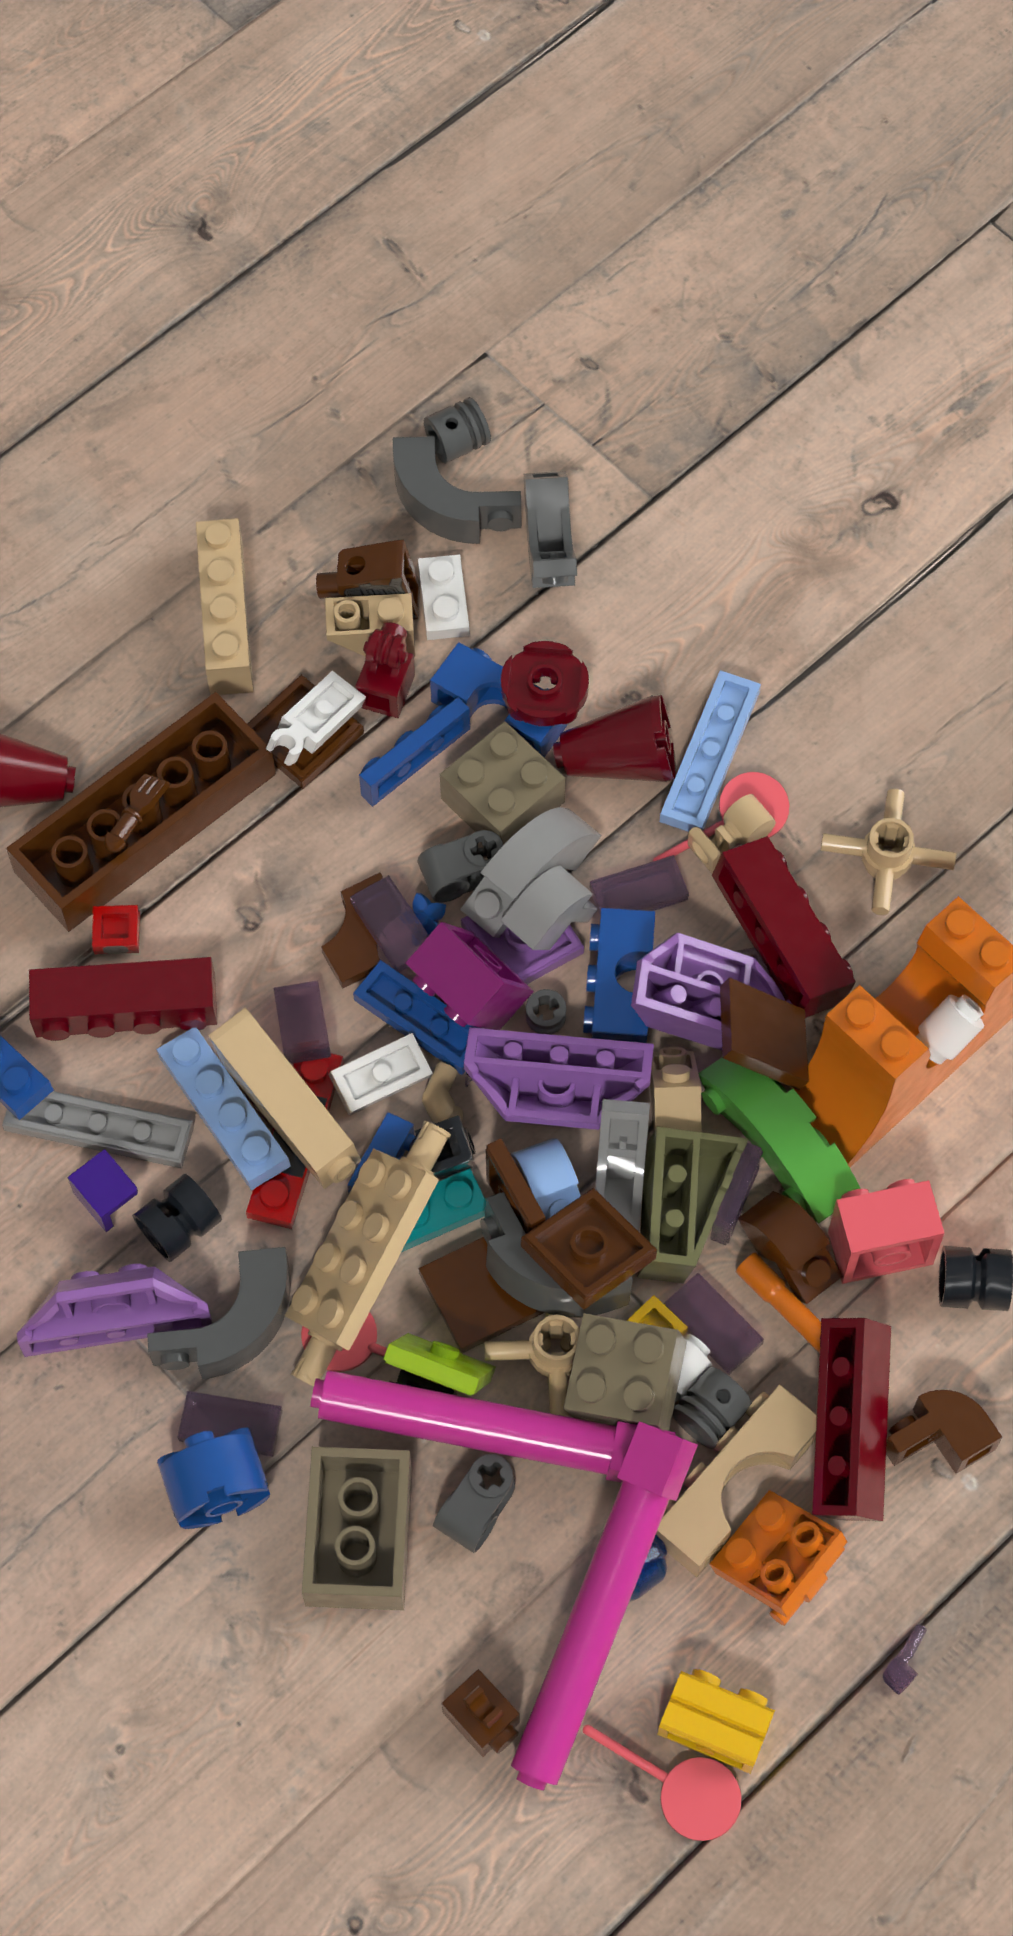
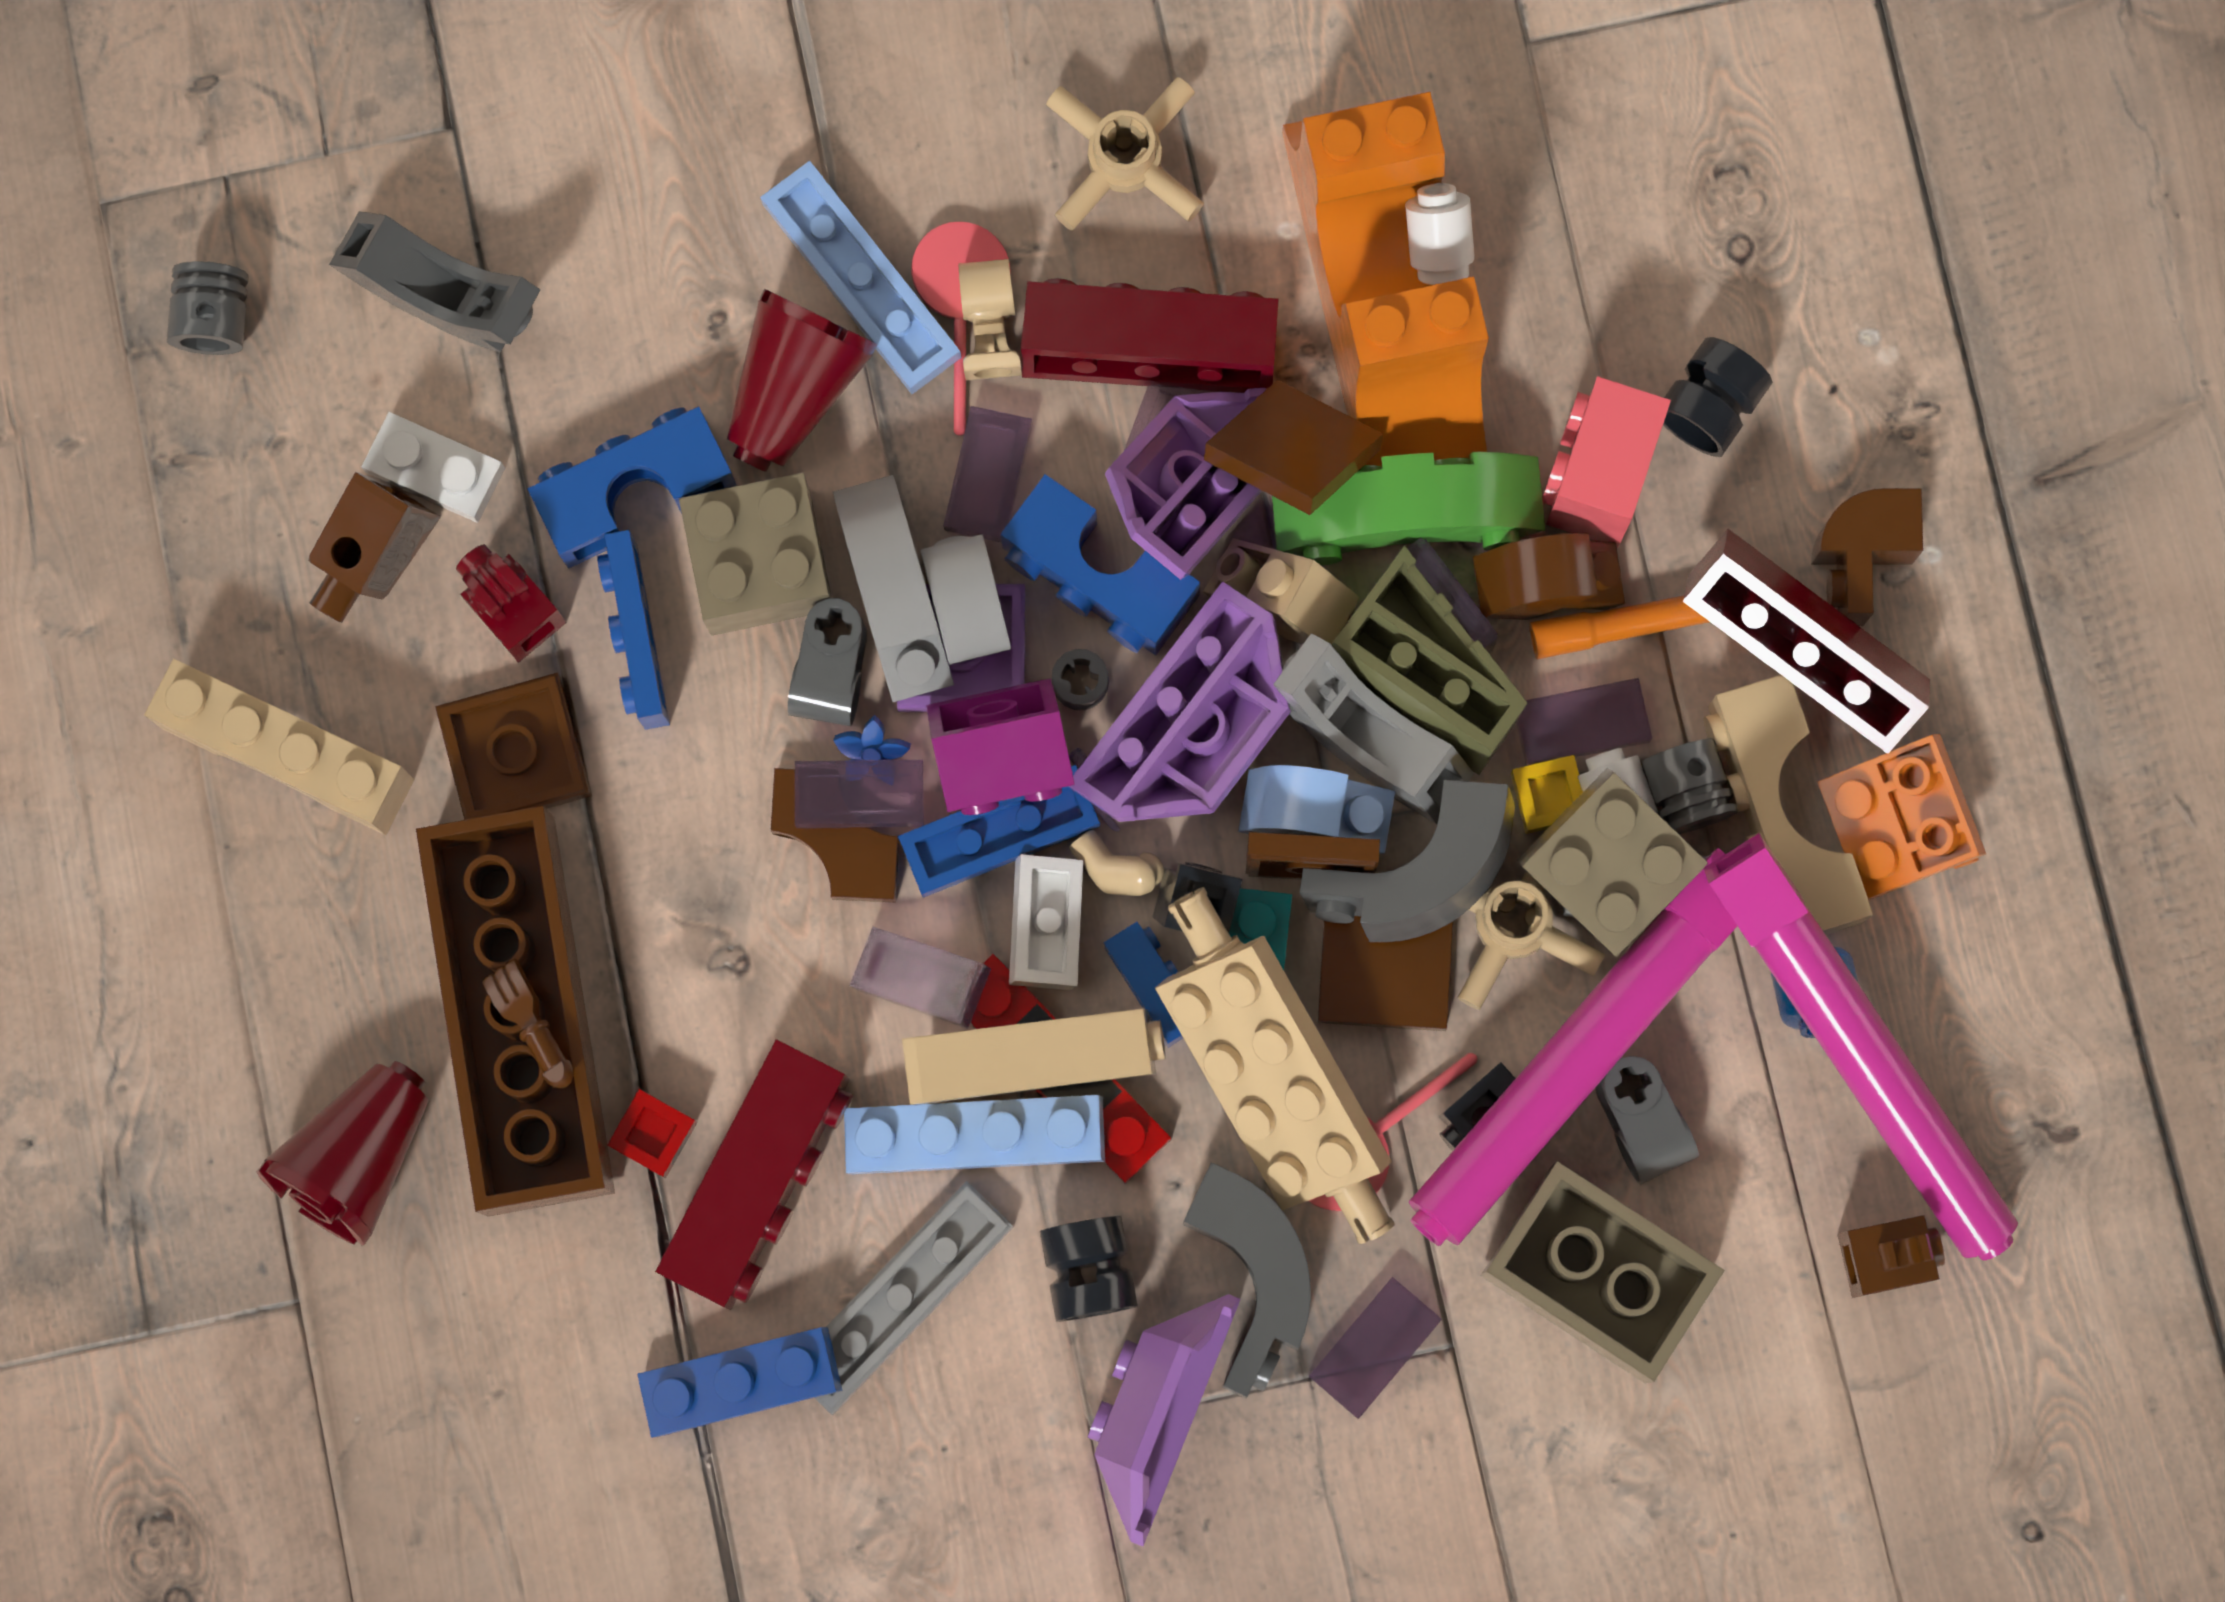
camera: 55 degrees left, 15 degrees up
(102, 1187) = (998, 1335): dark purple panel -> none
(213, 1478) = (1448, 1405): blue brick -> none
(316, 717) = (525, 723): white plate -> none
(355, 618) = (423, 579): tan slope -> none
(439, 1363) = (1464, 1065): lime plate -> none
(443, 507) = (296, 396): dark grey arch -> none
(542, 707) = (657, 384): dark red plate -> none
(588, 1248) = (1442, 812): reddish brown tile -> none
(696, 1796) = (2106, 1071): coral piece -> none
(716, 1720) = (2046, 1001): yellow brick -> none
(898, 1673) = (2098, 770): clear purple hand -> none

